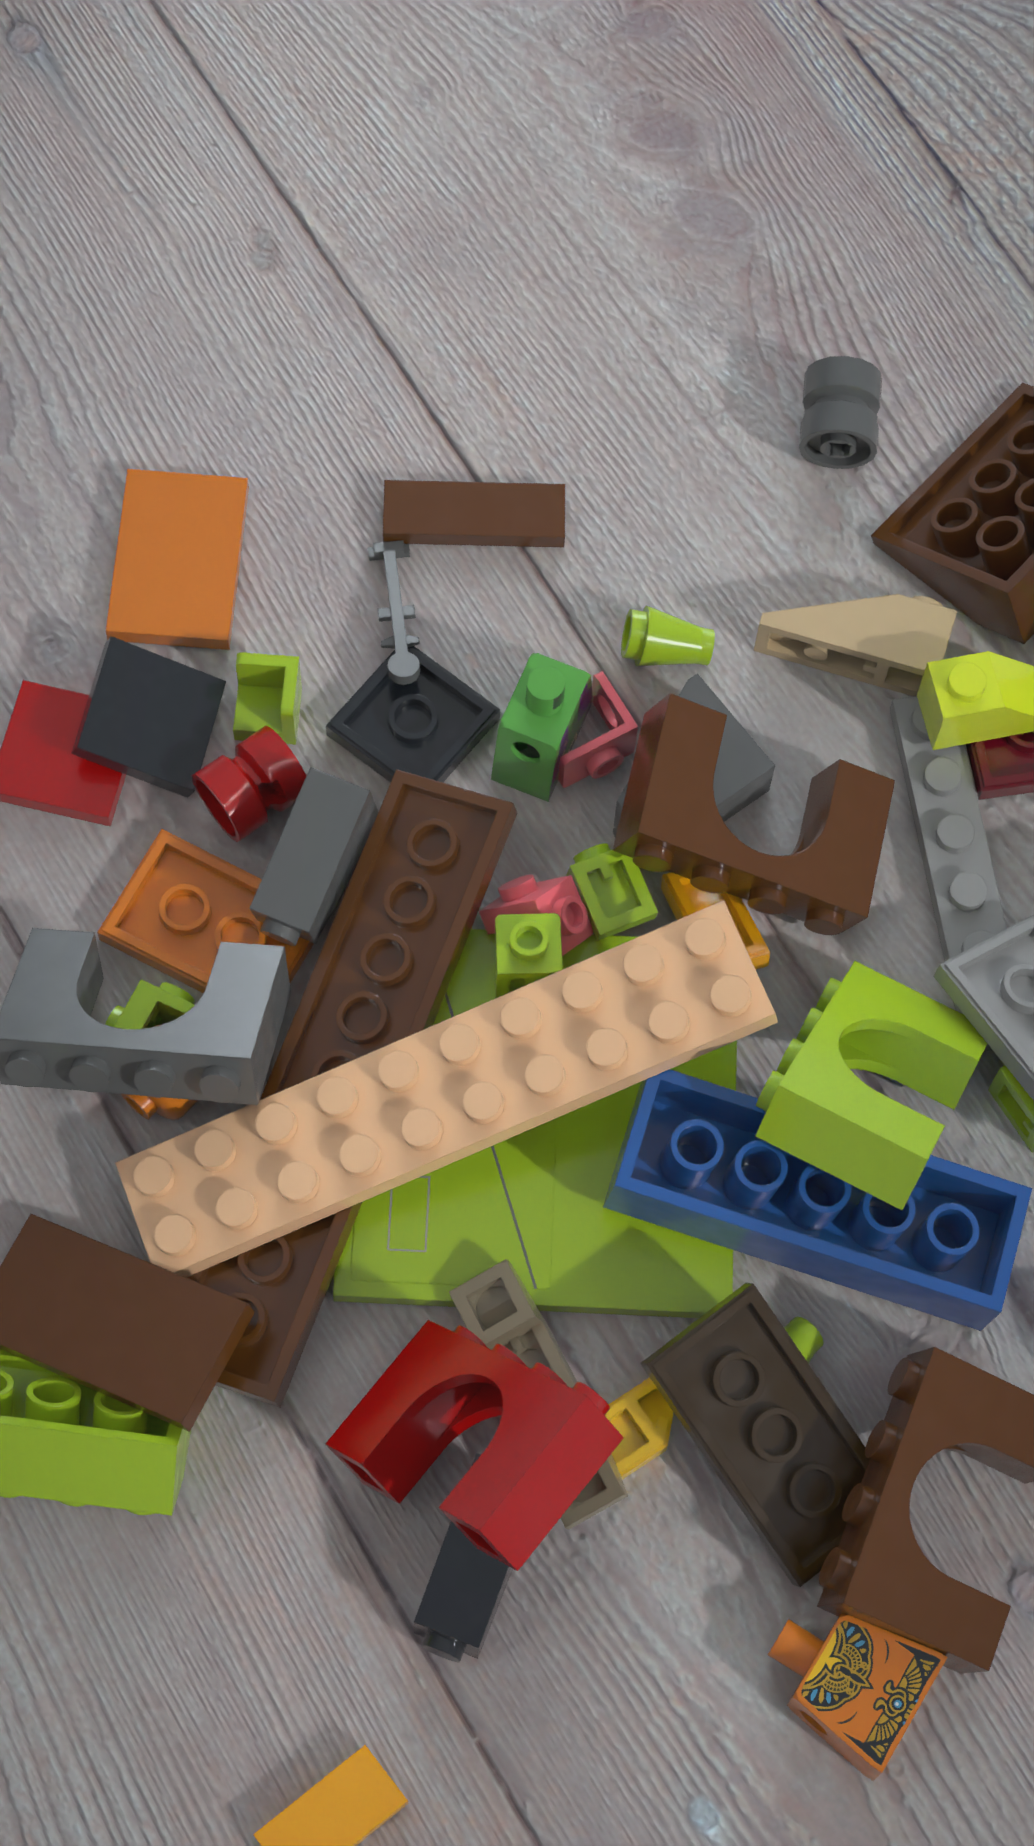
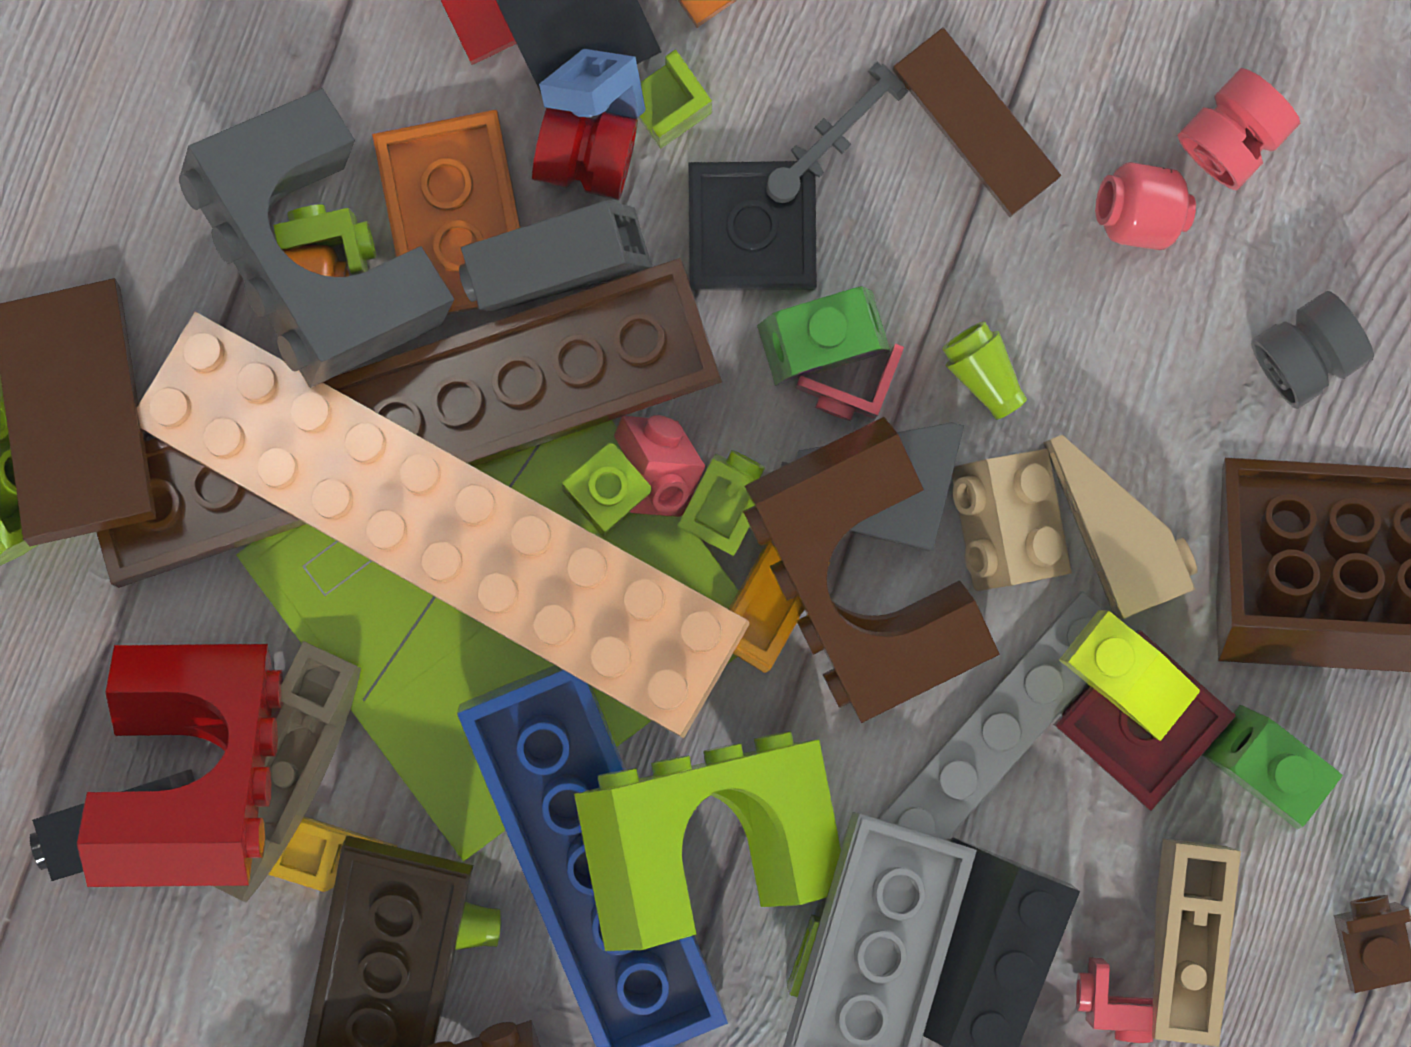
camera: 60 degrees right, 20 degrees up
(214, 728) = (595, 84): none -> medium blue bracket
(636, 342) = (1245, 122): none -> coral wheel
(637, 444) = (1145, 206): none -> coral head
(795, 709) = (1010, 520): none -> tan bracket

